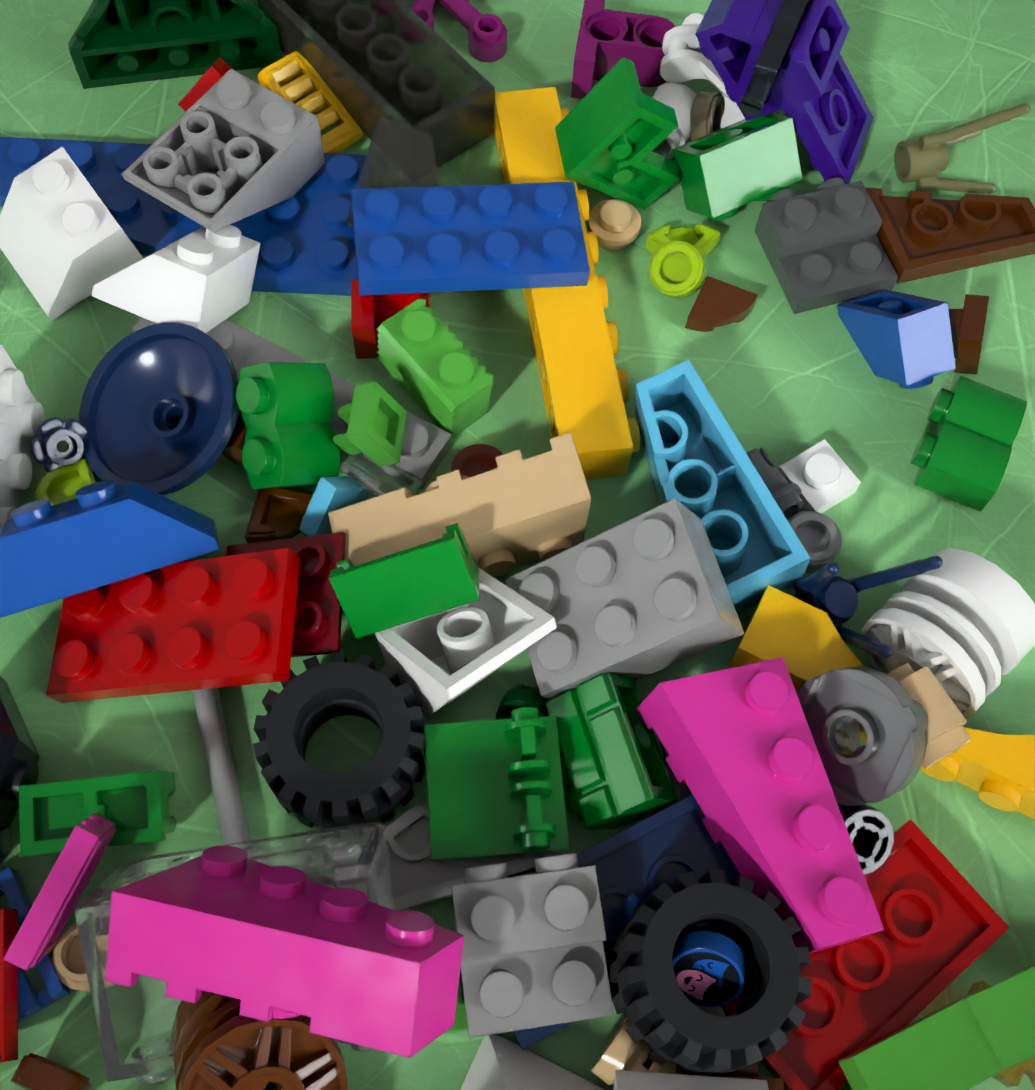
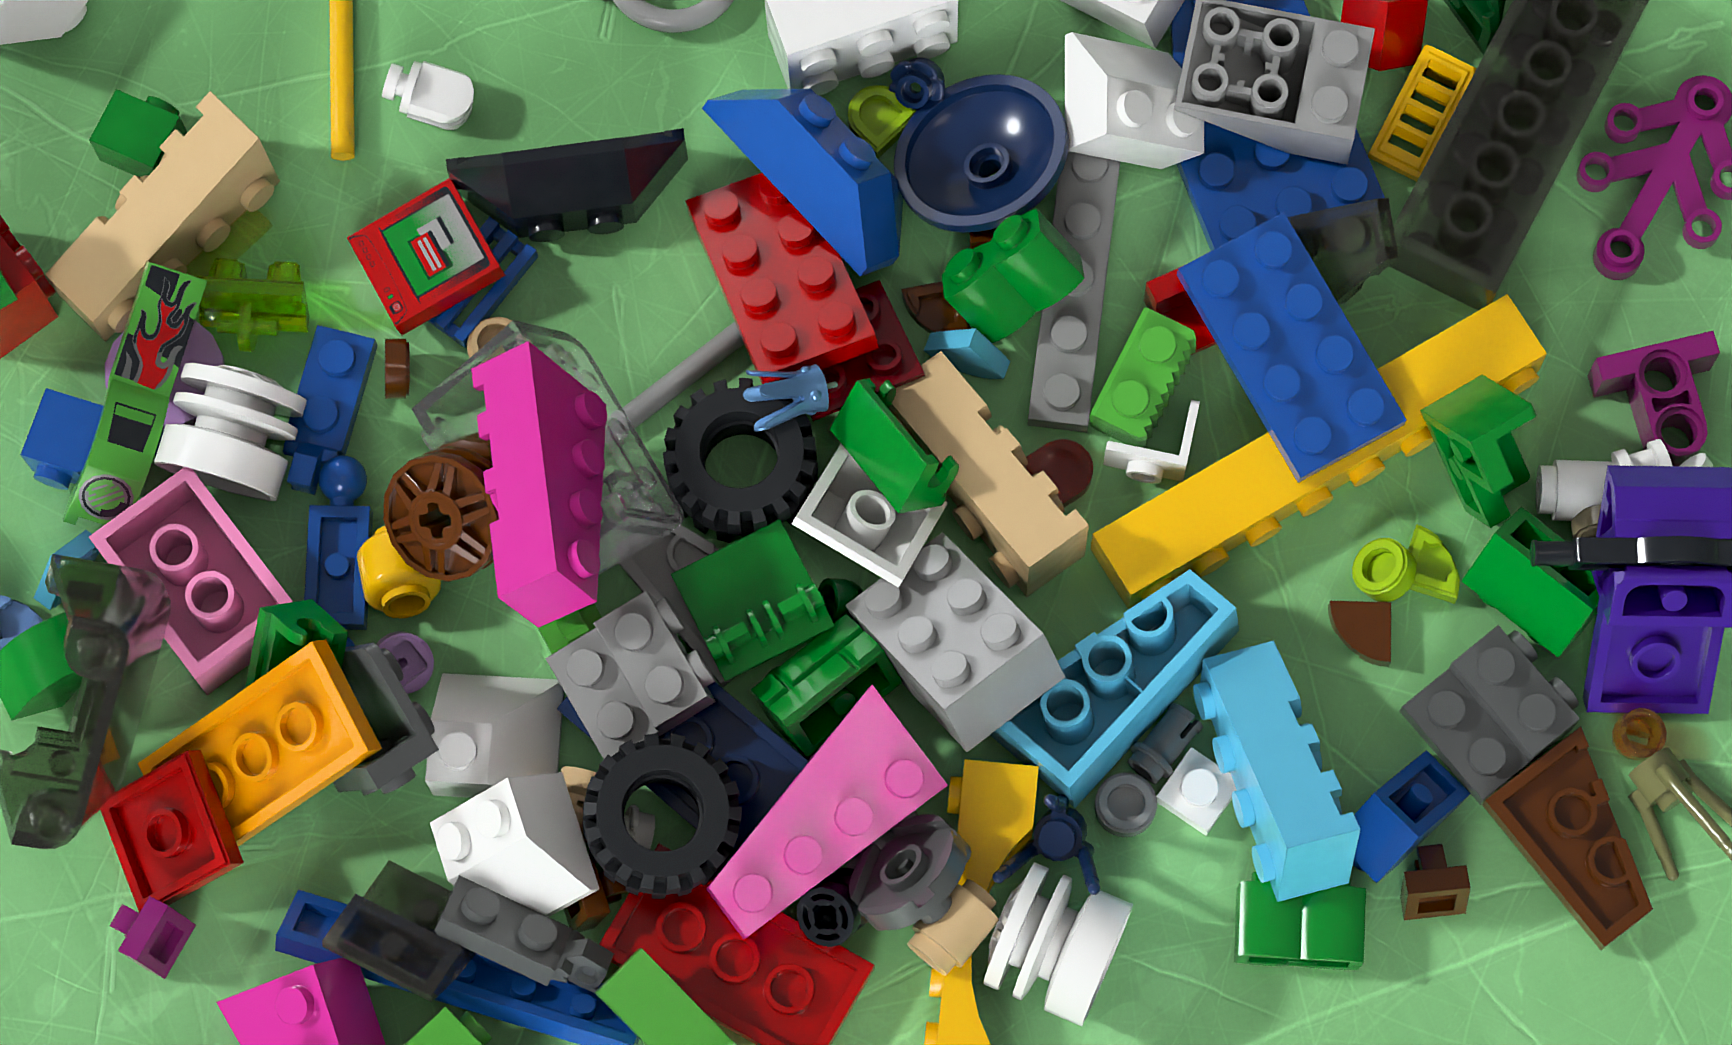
camera: 75 degrees right, 10 degrees up
(61, 892) = (529, 302): dark pink tile -> none
(130, 801) = (604, 294): green hinge -> none
(310, 635) = (805, 387): none -> flat silver piece
(374, 425) = (1046, 351): bright green tile -> none
(379, 479) = (1011, 382): clear piece -> none
(514, 393) = (1153, 465): none -> white bracket
(614, 223) = (1419, 484): tan plate -> none
(709, 968) = (662, 811): tile -> none
(852, 389) = (1276, 772): none -> medium azure wedge
(879, 159) = (1641, 724): none -> clear orange hinge

